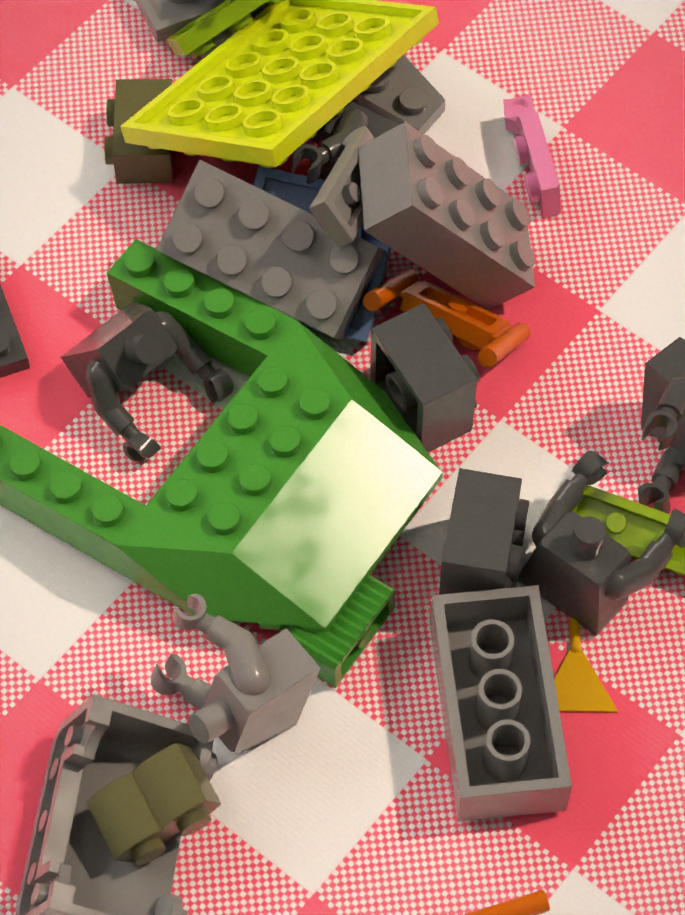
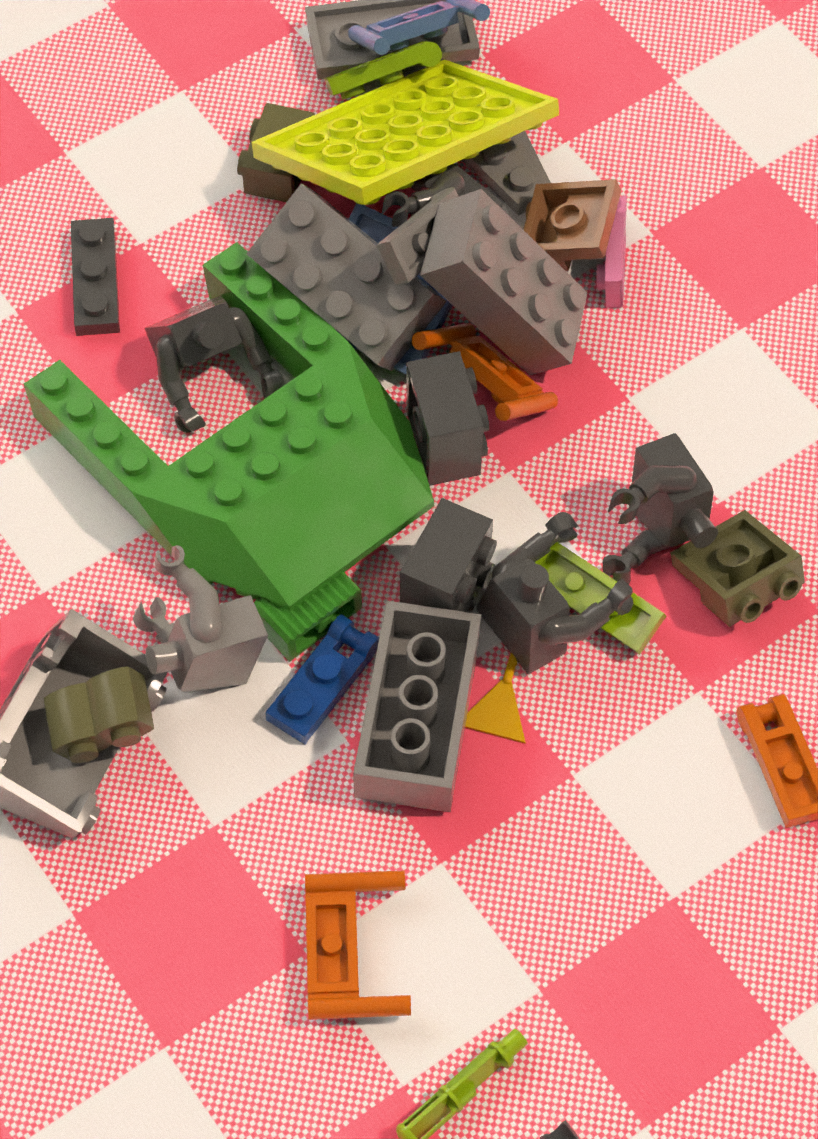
camera: 15 degrees right, 0 degrees up
(379, 700) = (322, 680): none -> blue plate
(487, 128) = (573, 218): none -> medium nougat plate

